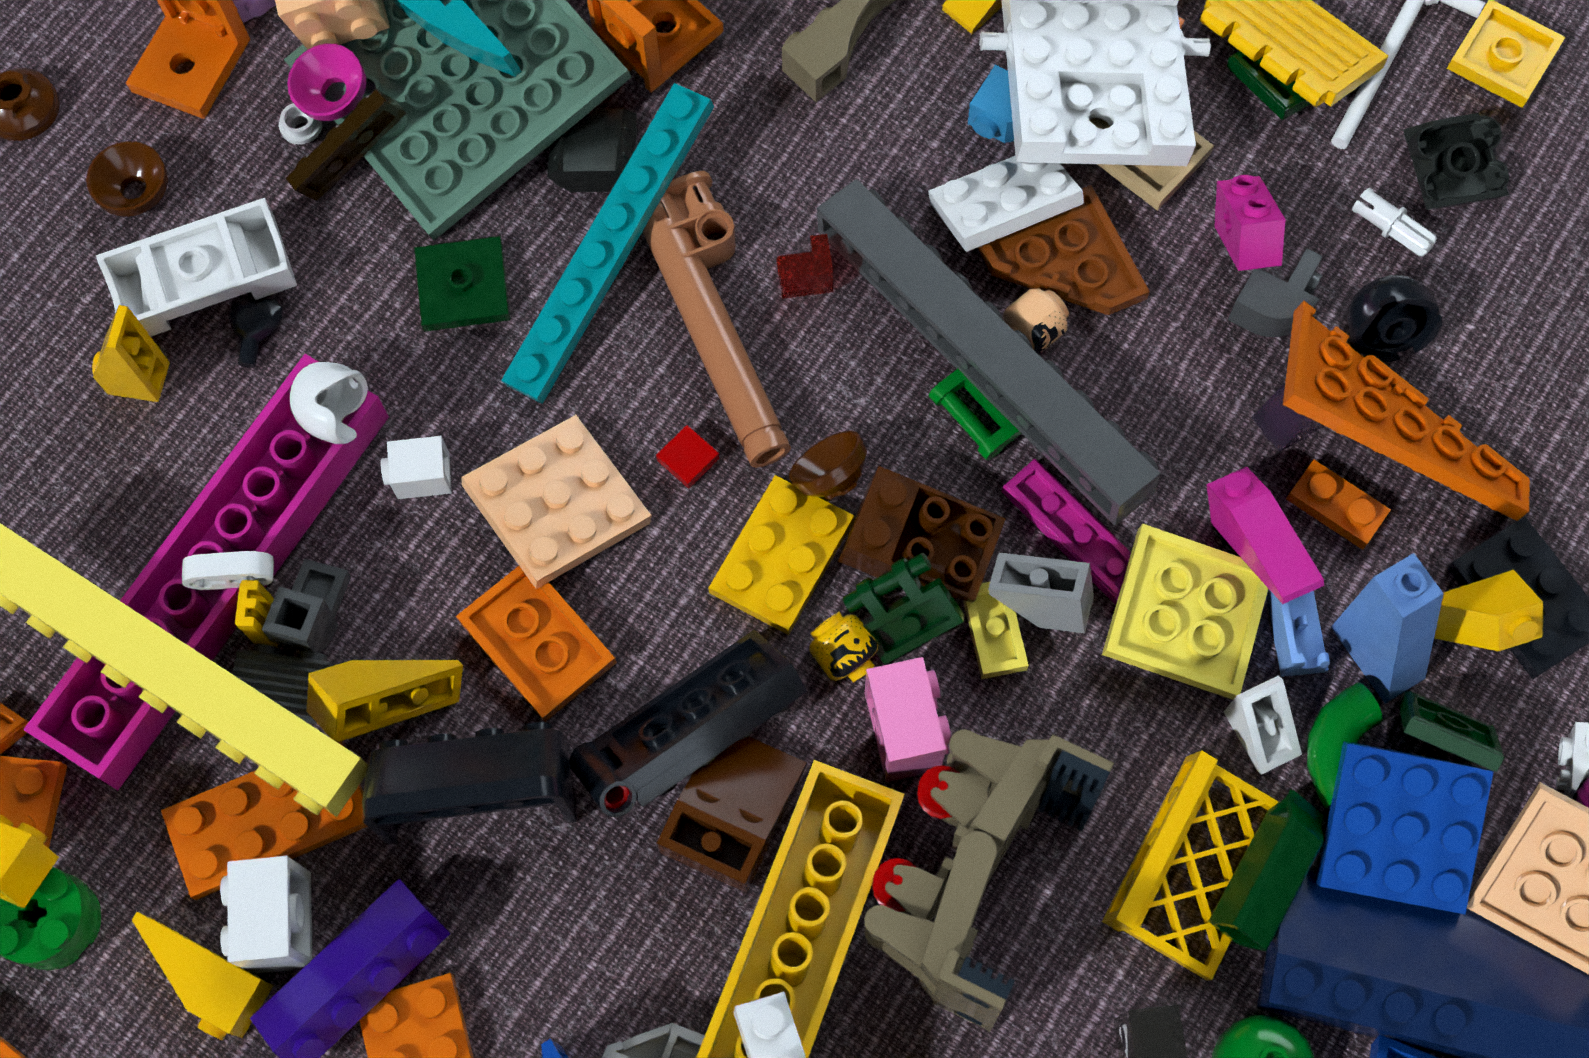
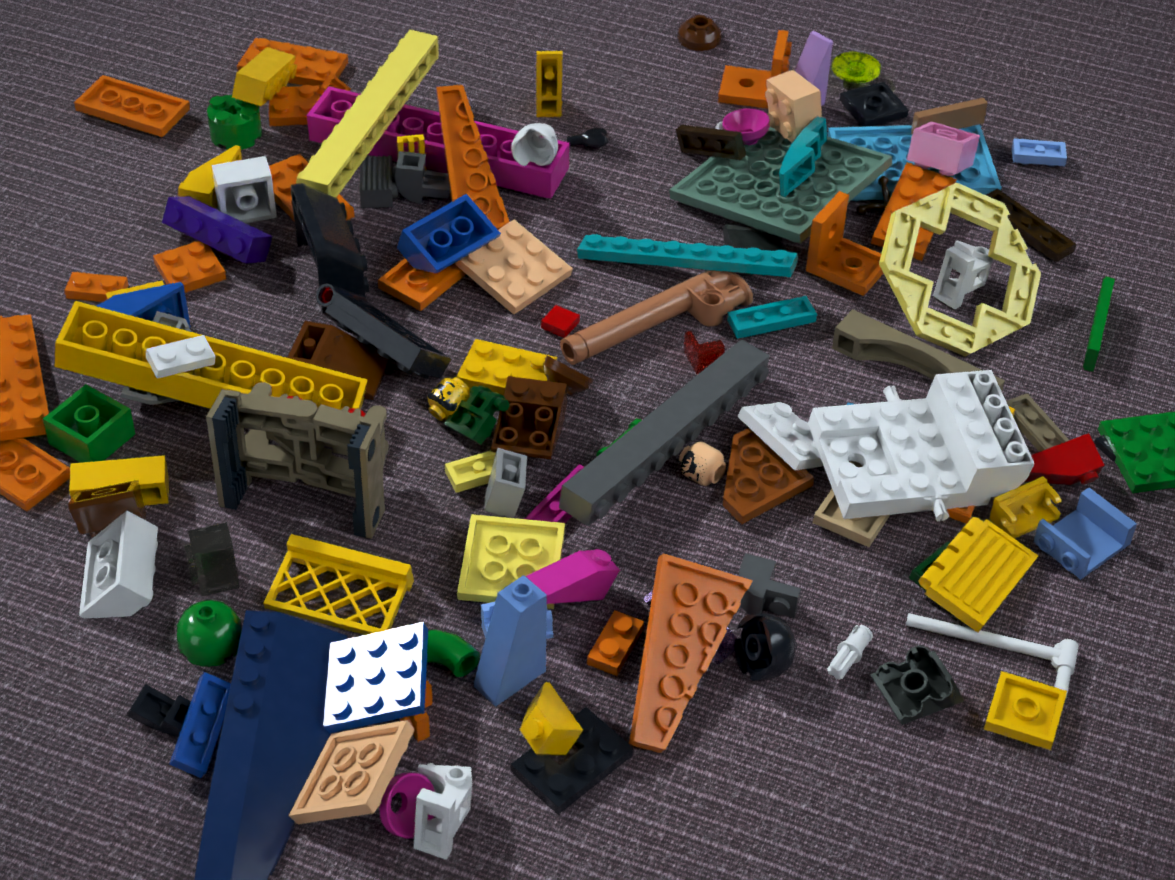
camera: 75 degrees right, 25 degrees down
(120, 166) = (661, 70): reddish brown piece -> none
(199, 265) = (618, 105): white piece -> none
(226, 569) = (428, 127): white beam -> none
(357, 527) = (465, 155): none -> orange wing
(379, 693) = (375, 207): yellow slope -> none
(417, 467) = (521, 207): white brick -> none
(462, 284) = (645, 213): dark green plate -> none
(502, 584) = (446, 235): none -> blue slope
(750, 161) = (771, 317): none -> teal plate
(906, 719) = (410, 420): bright pink brick -> none
(1249, 223) = (808, 553): dark pink brick -> none
(1265, 725) = (443, 605): white slope -> none
(1270, 873) = (333, 611): dark green piece -> none
(1451, 730) = (451, 699): dark green plate -> none

